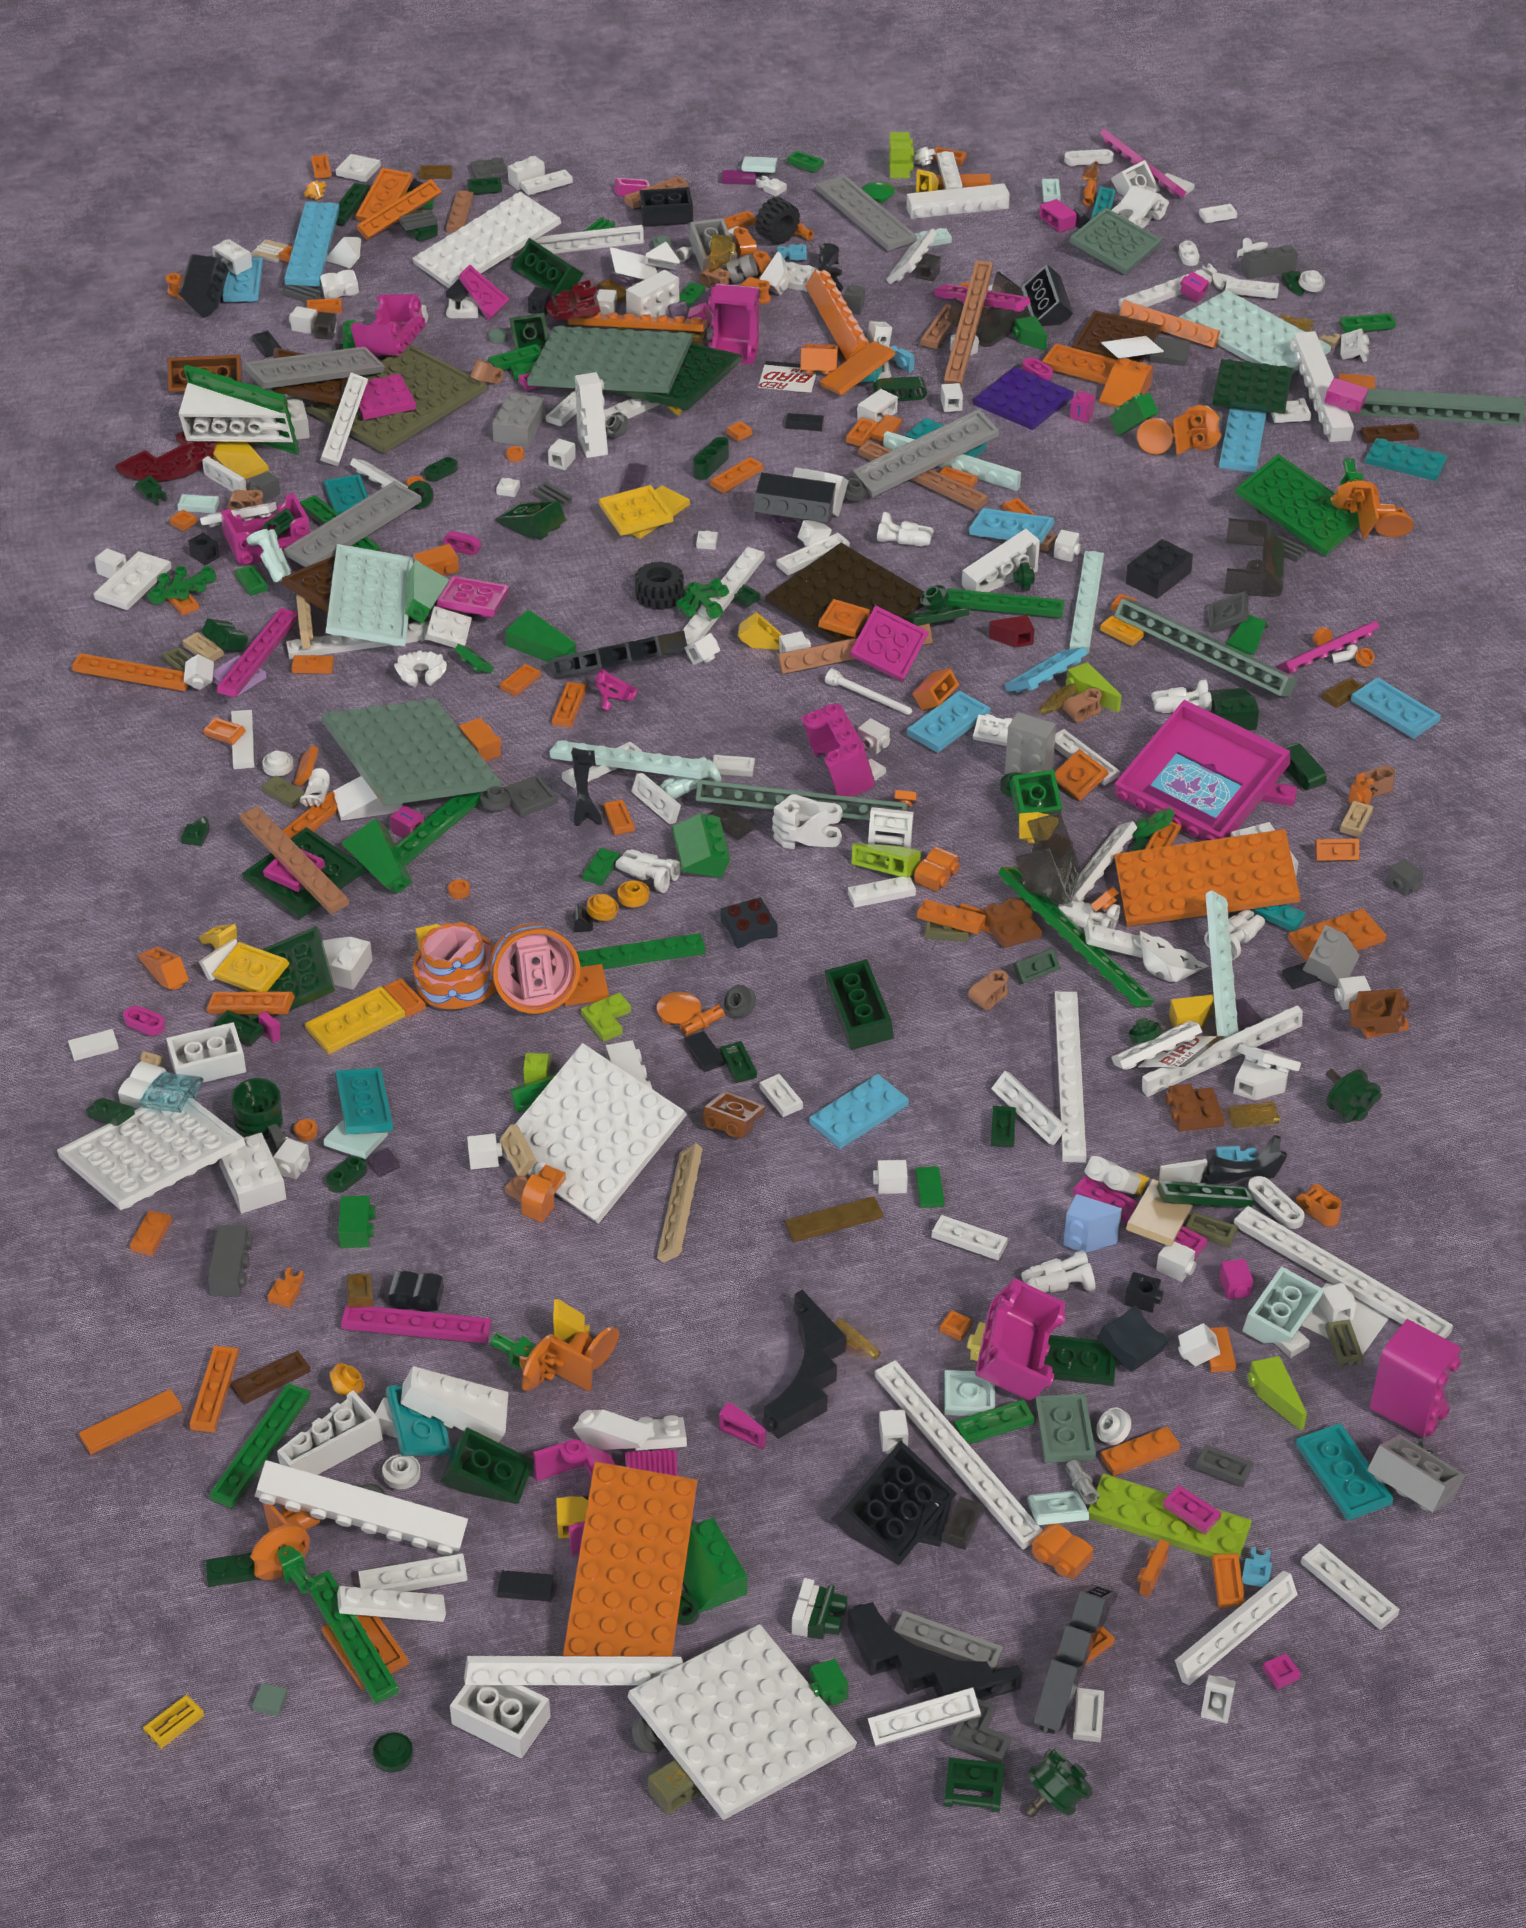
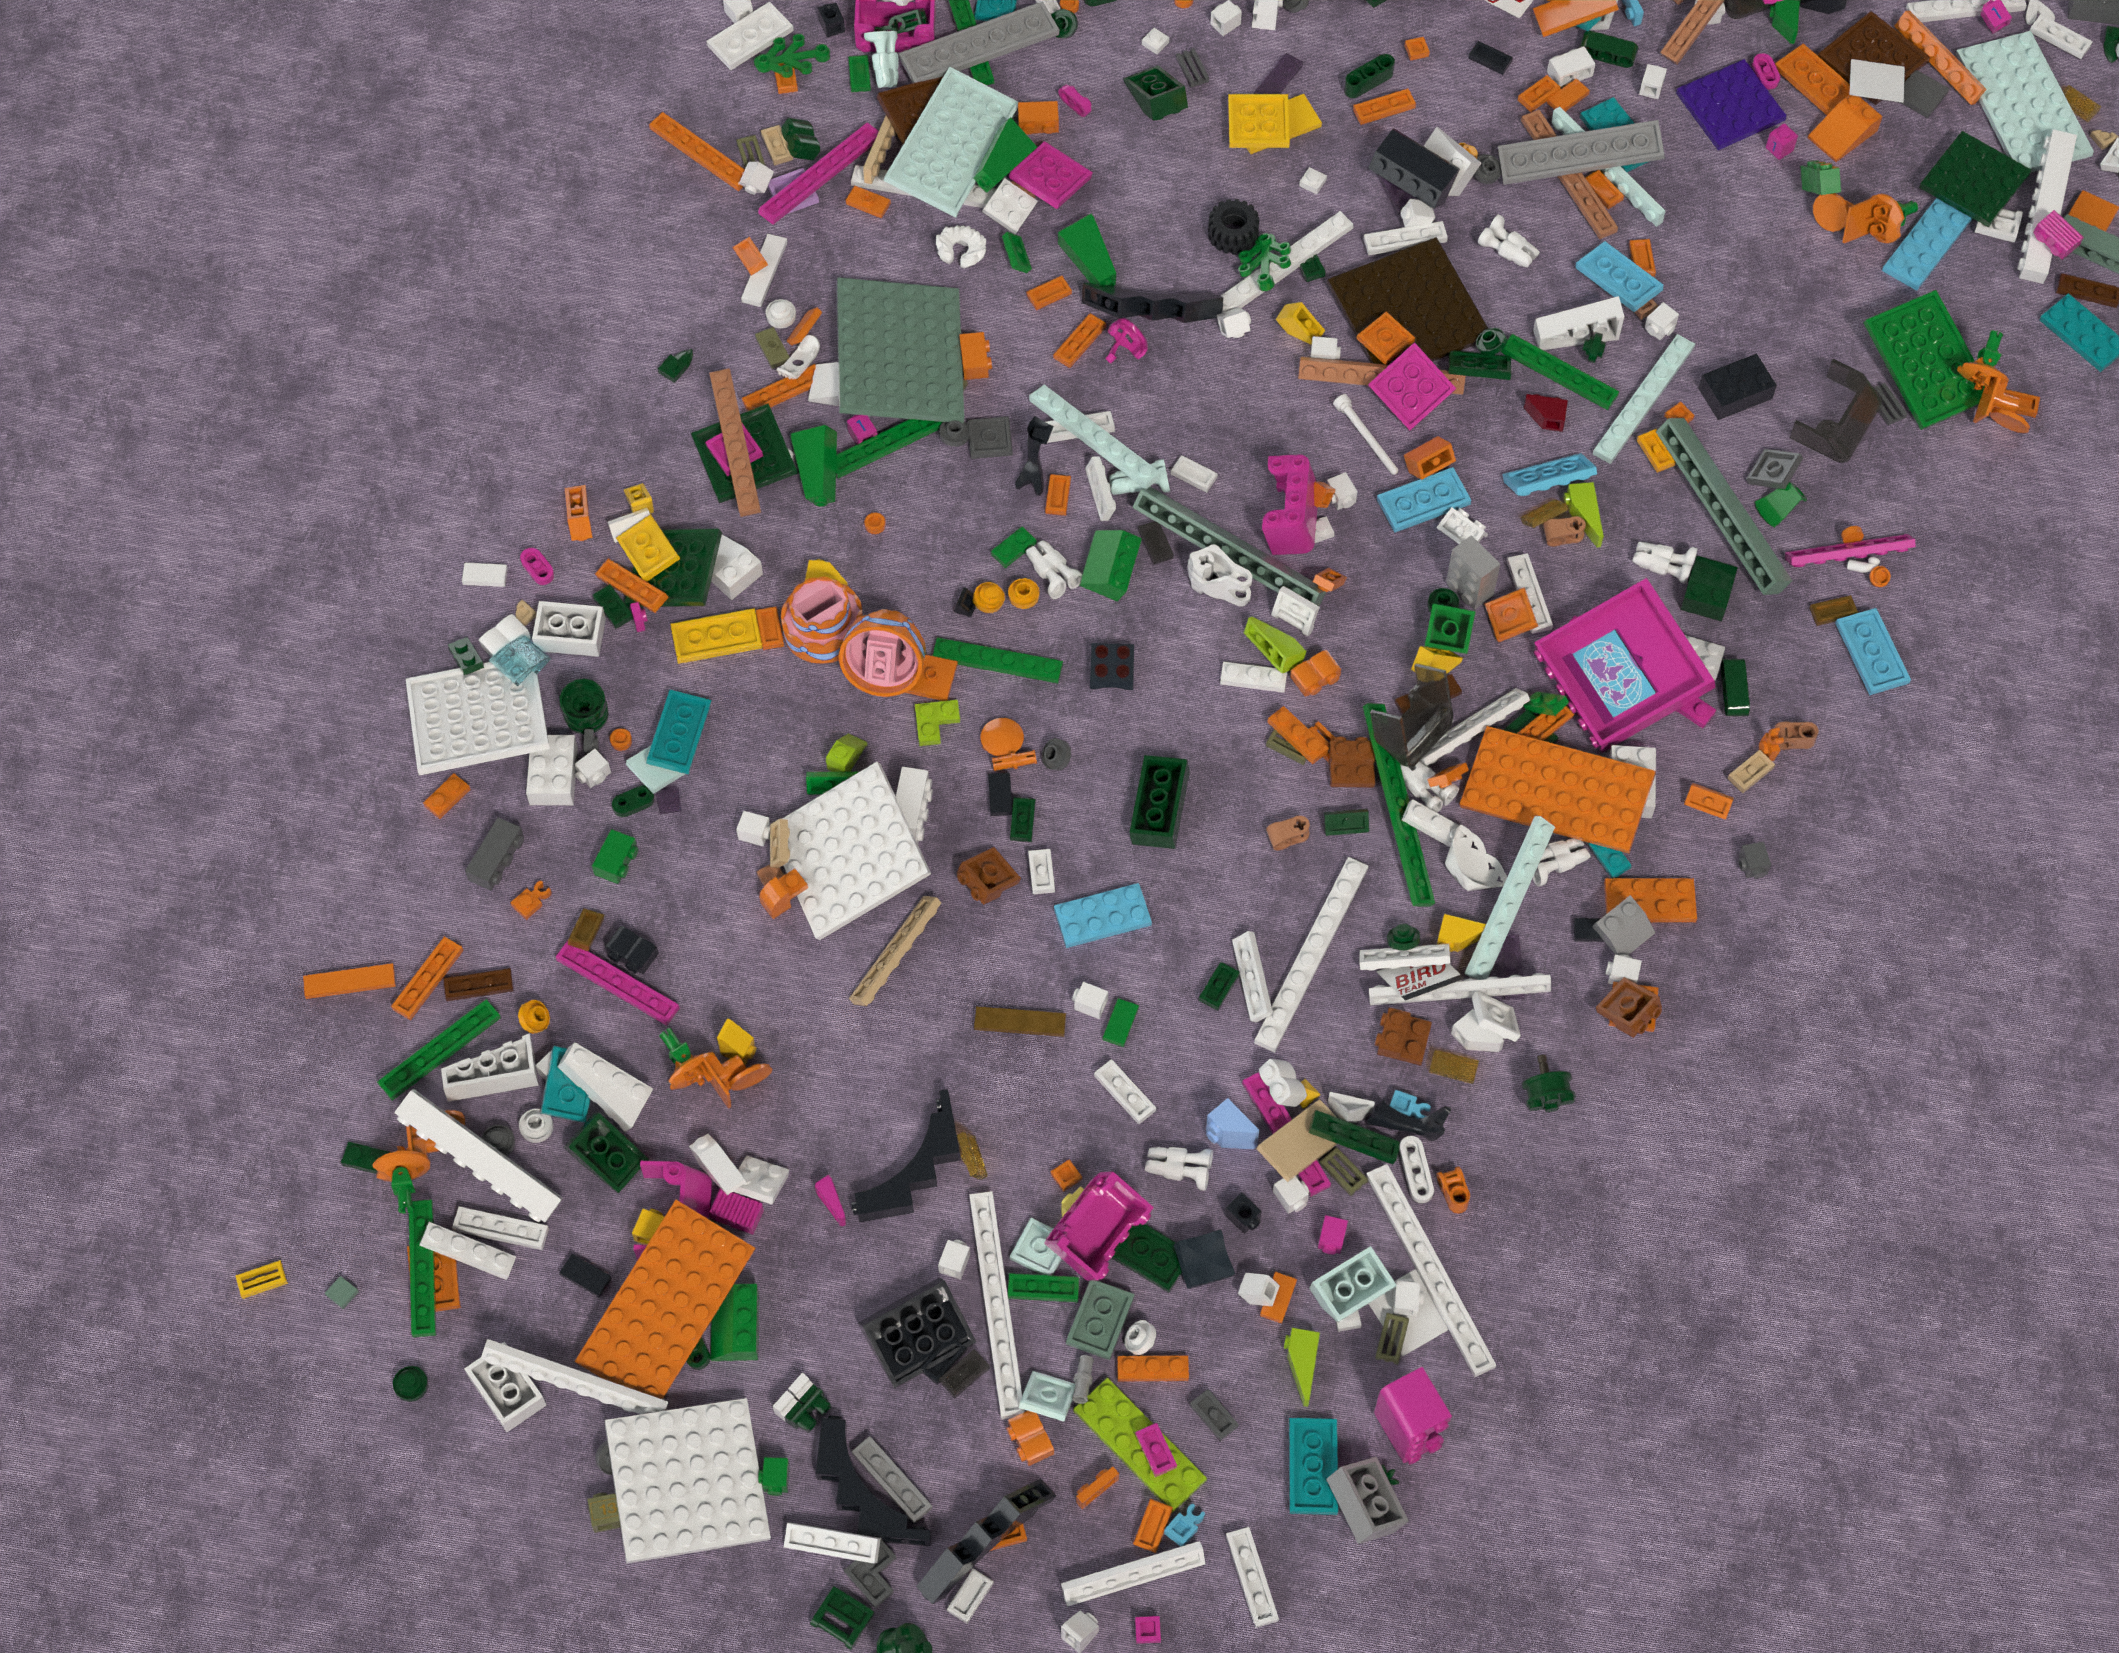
camera: 25 degrees right, 20 degrees up
(864, 735) = (1322, 494): none -> orange slope

